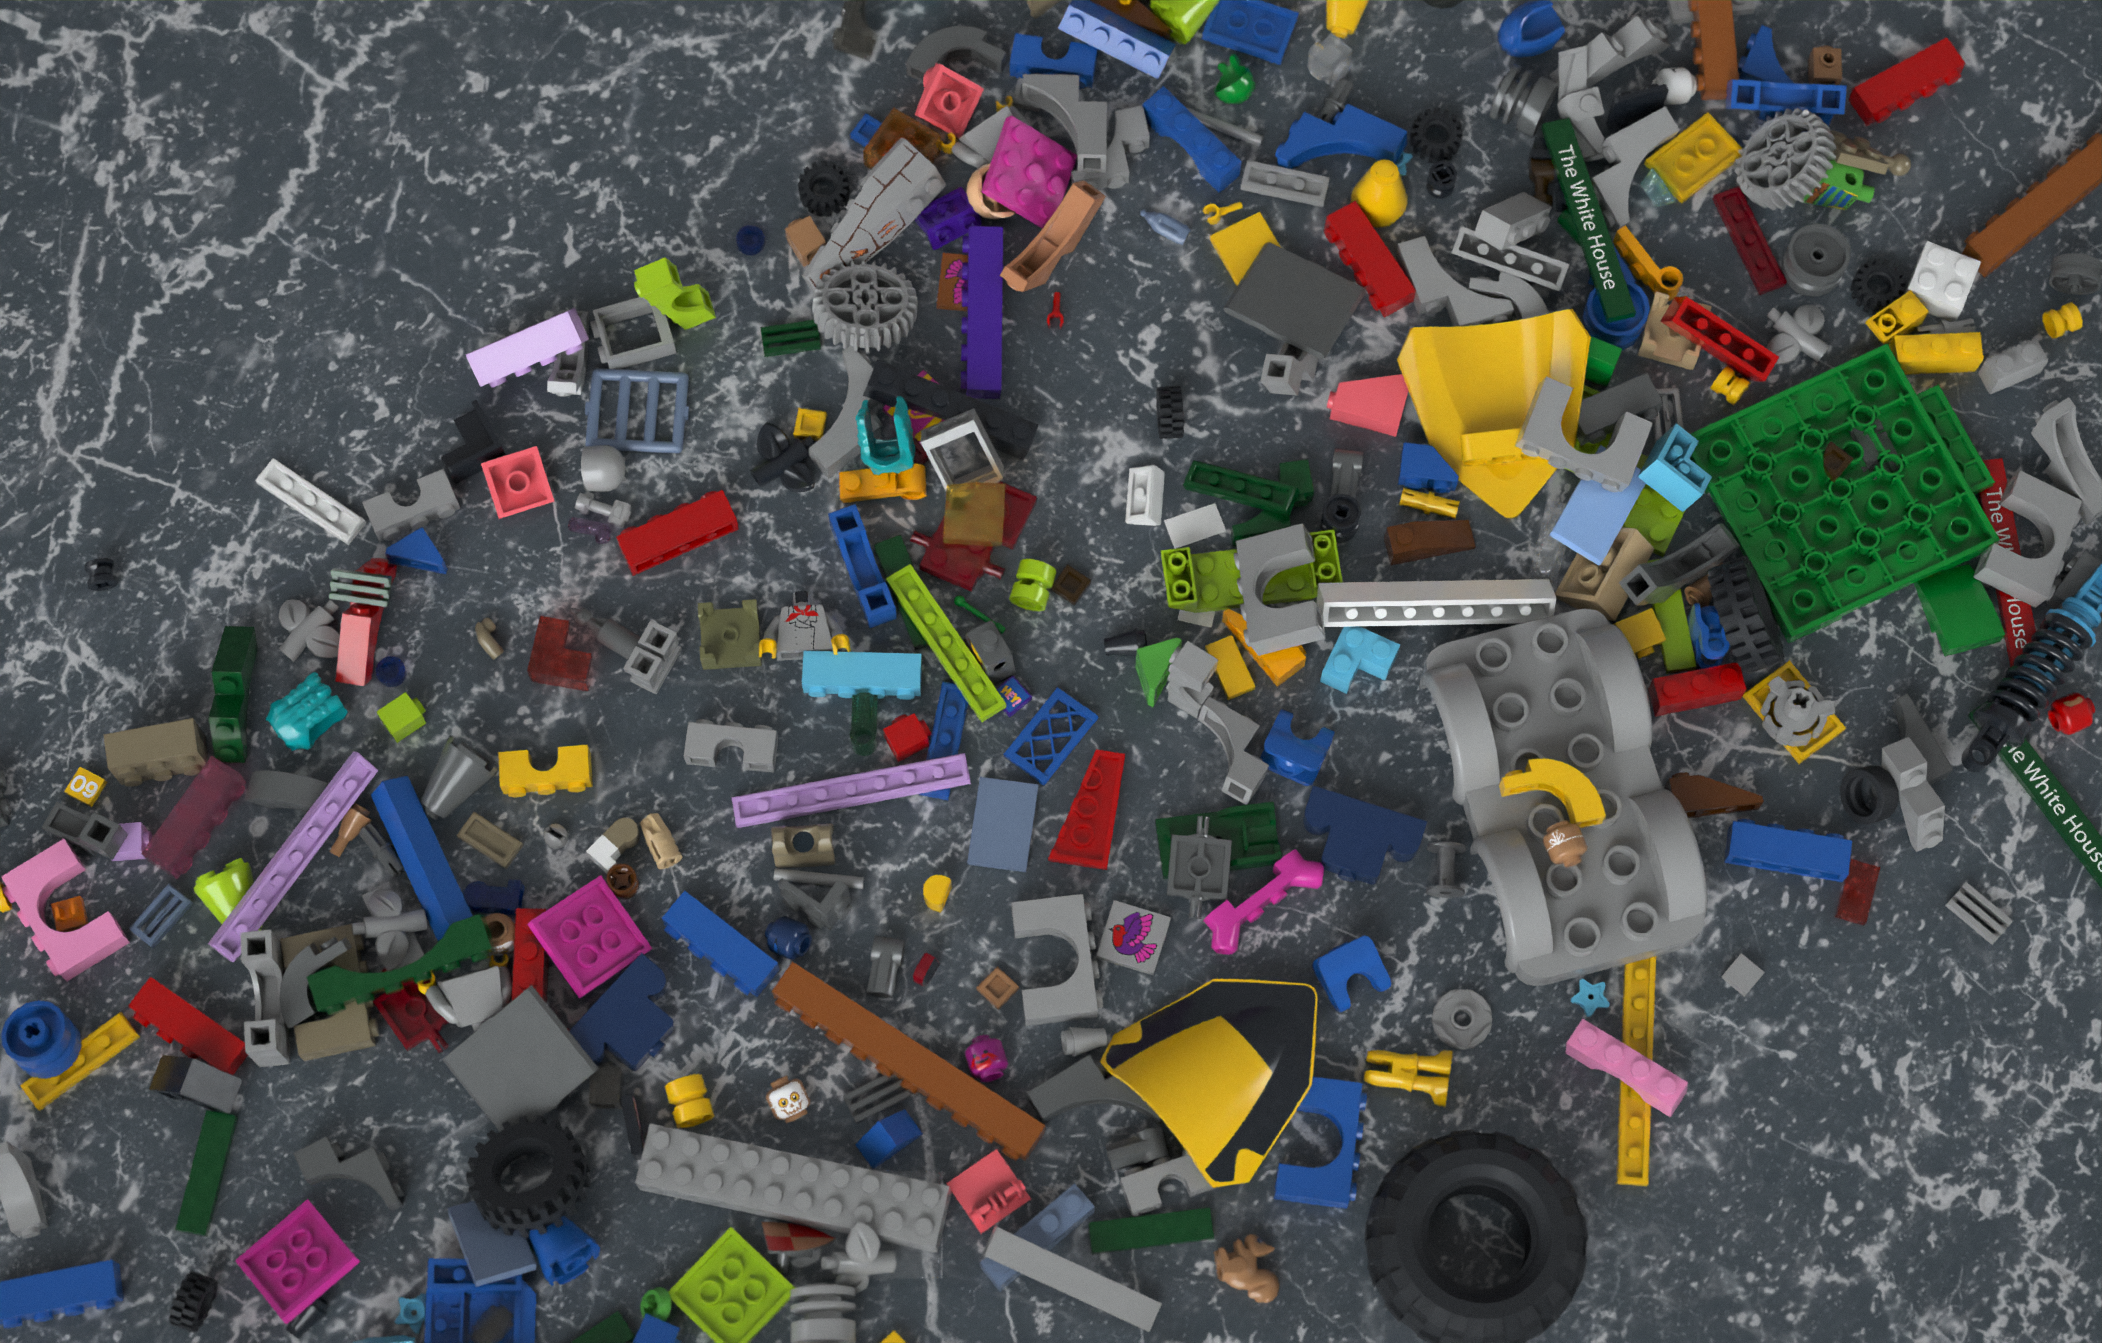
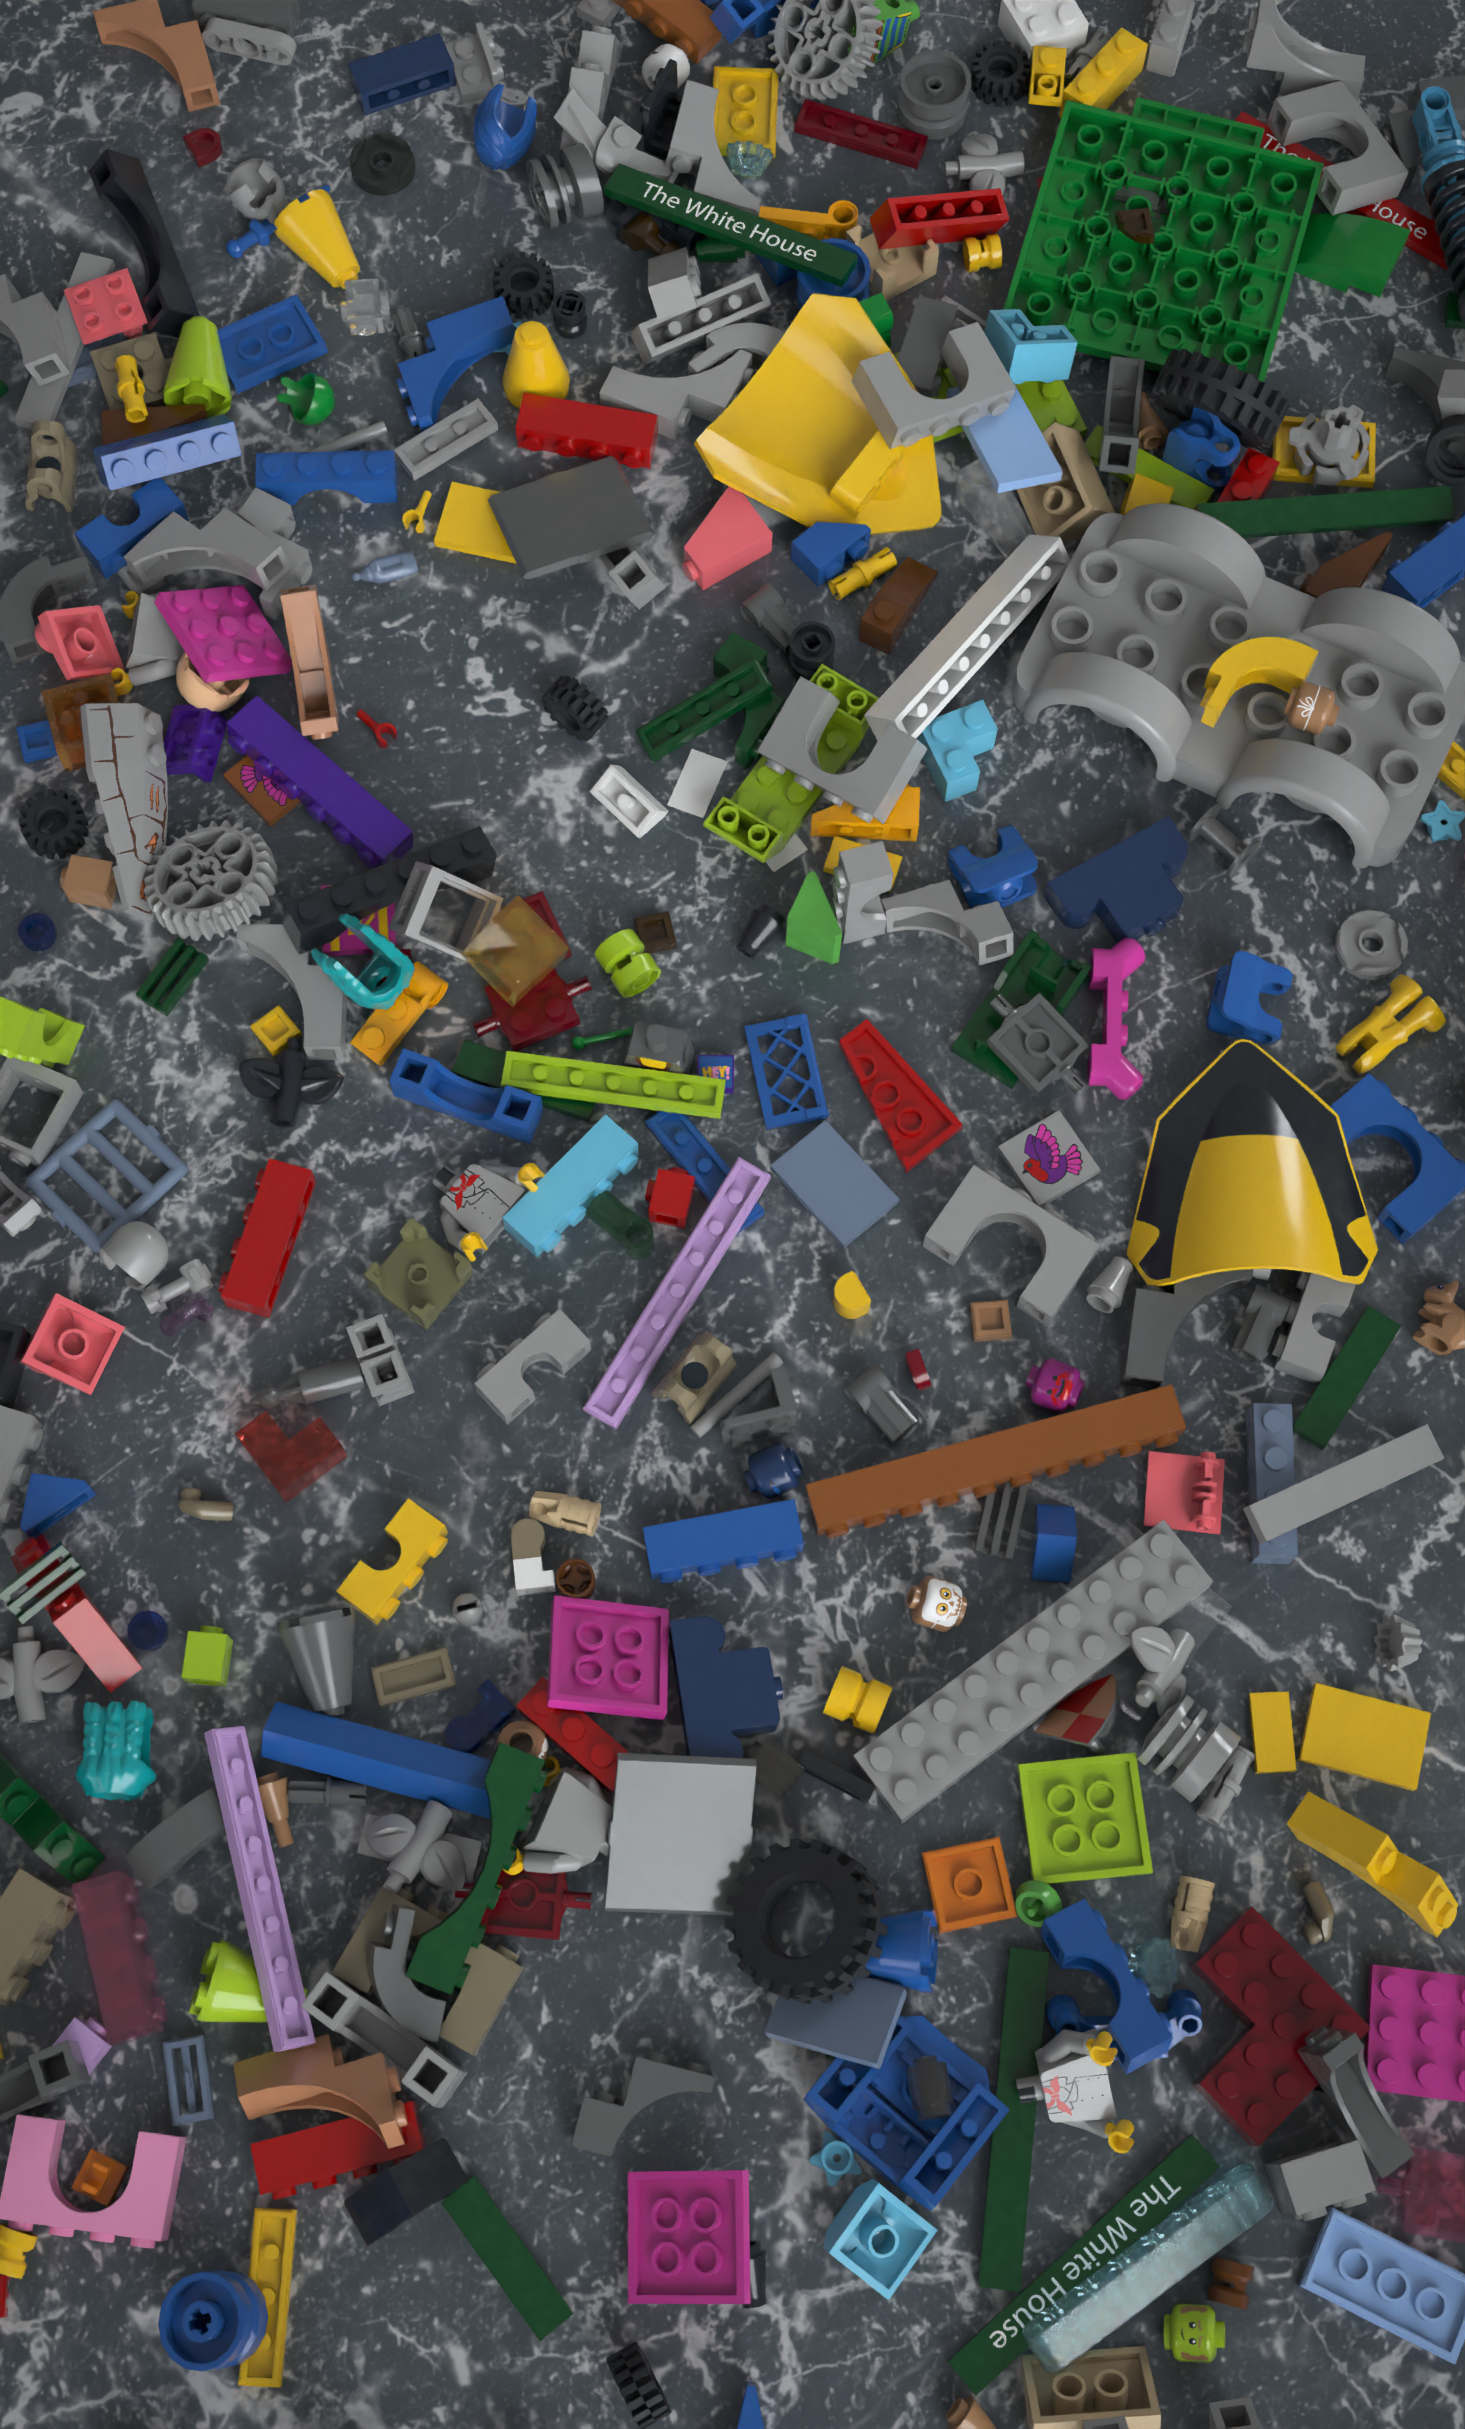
camera: 50 degrees left, 0 degrees up
(218, 985) = (323, 2080): none -> nougat arch
(636, 1258) = (969, 1885): none -> orange tile
(1739, 748) = (1334, 512): none -> dark green tile

